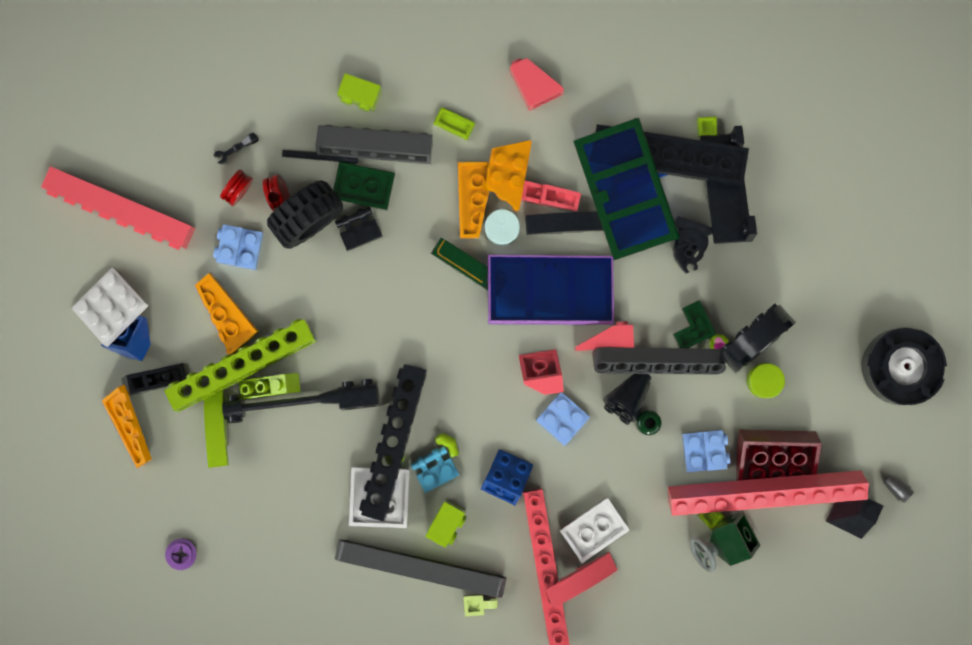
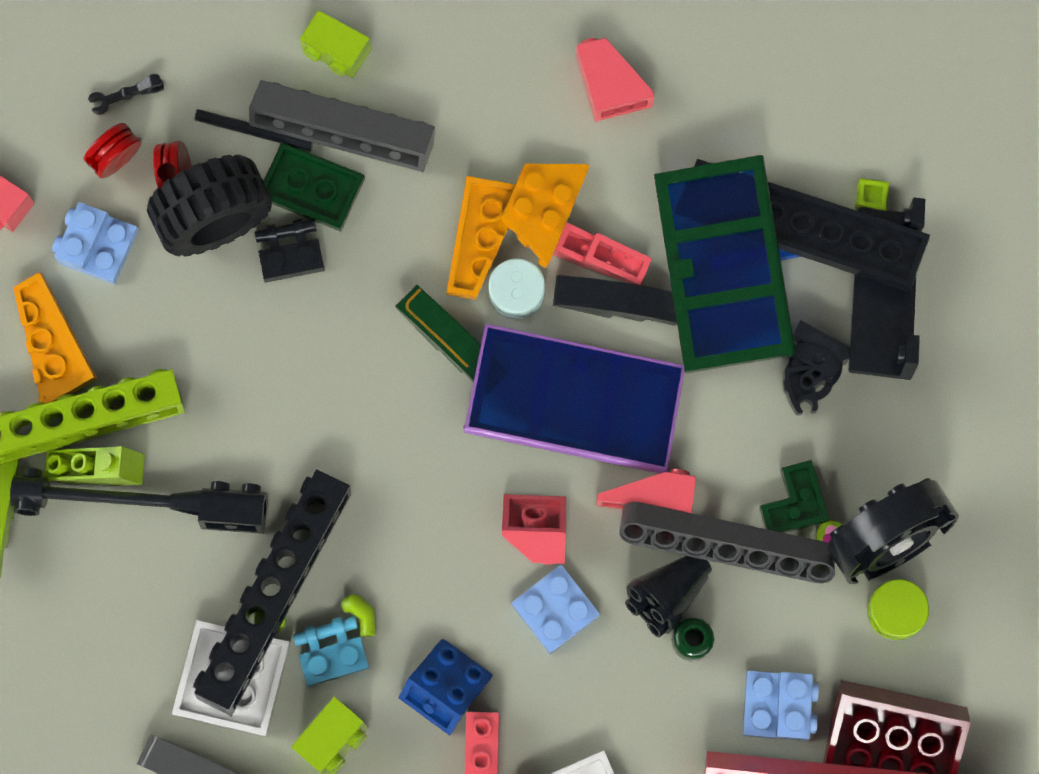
camera: 15 degrees right, 10 degrees down
(454, 123) = (473, 119): lime tile -> none

